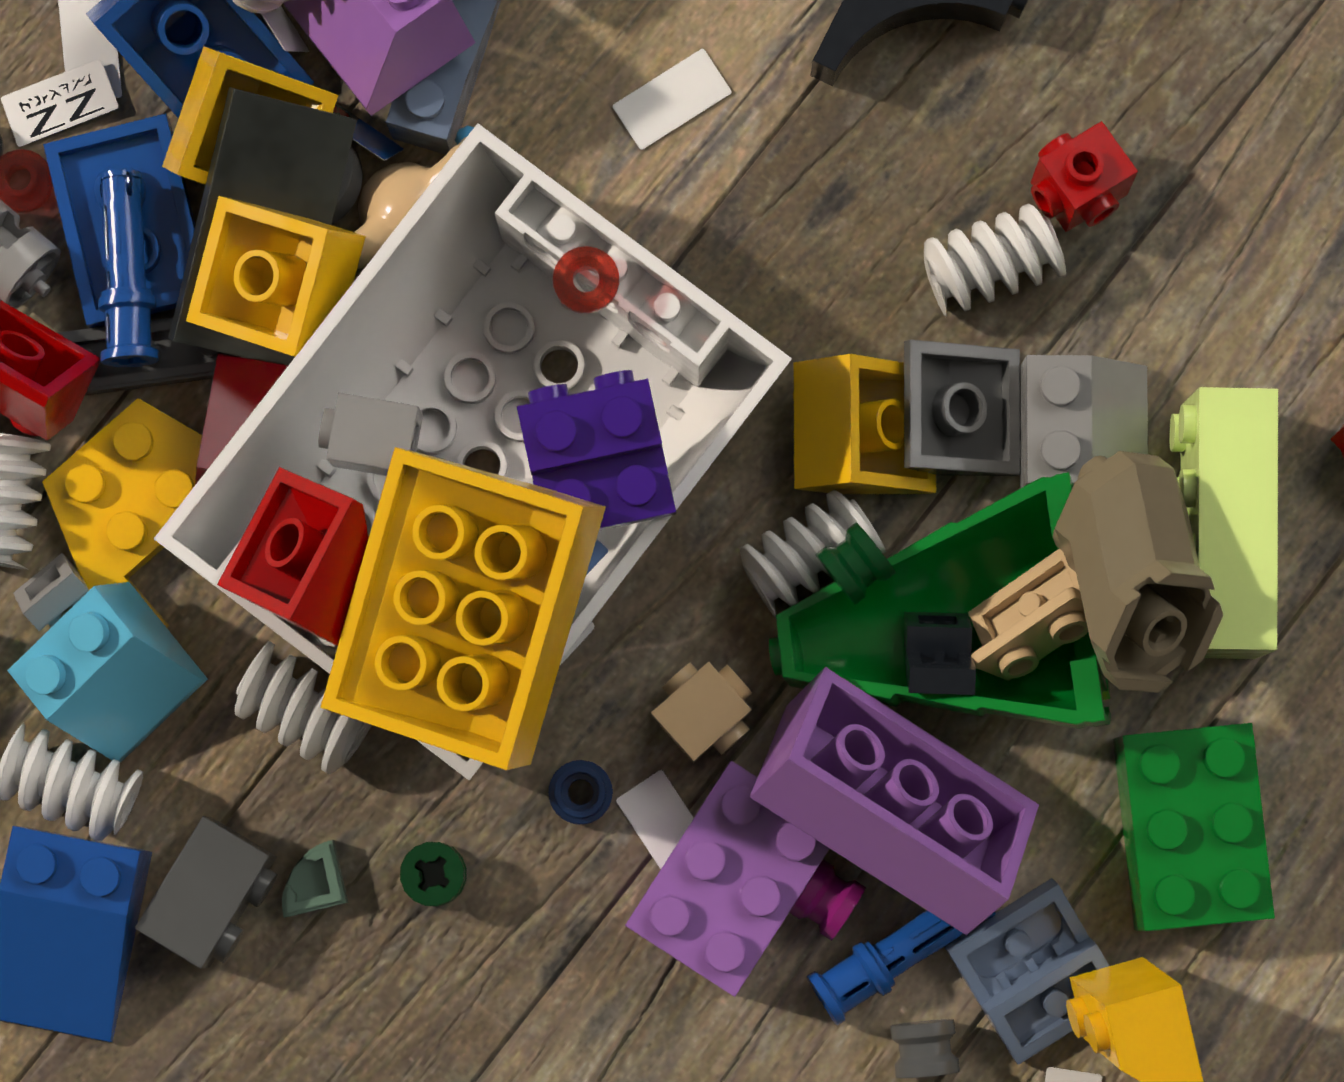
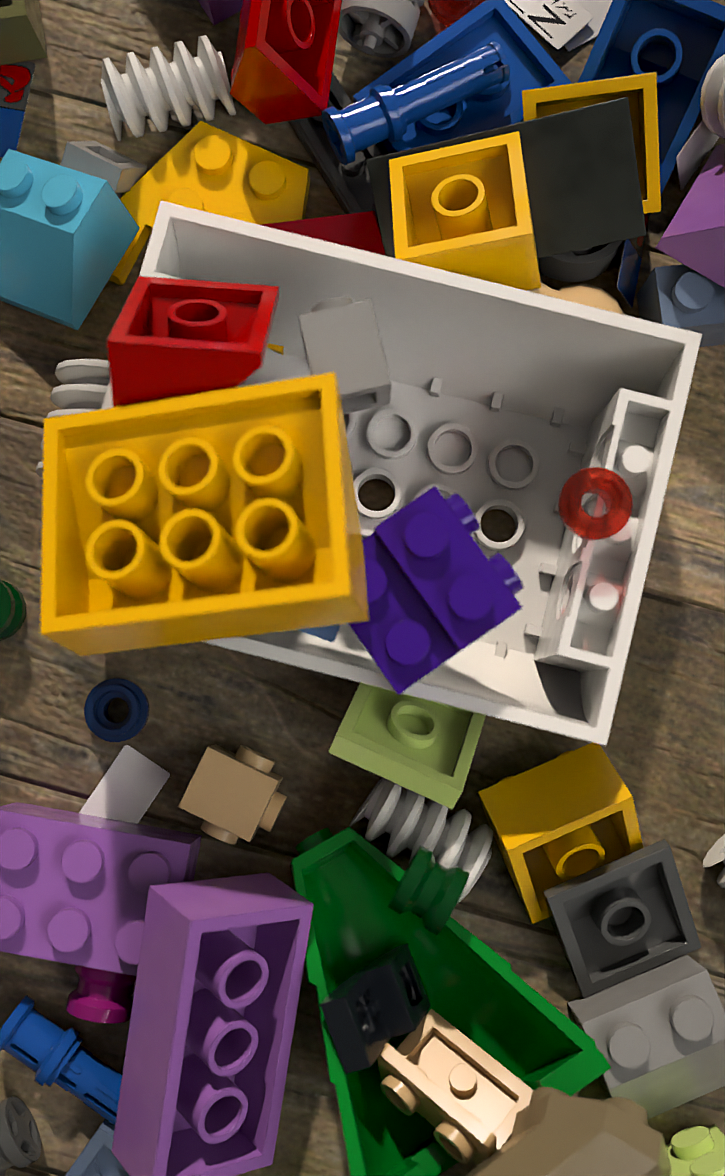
camera: 65 degrees right, 0 degrees up
(719, 526) = (410, 741): none -> yellowish green plate

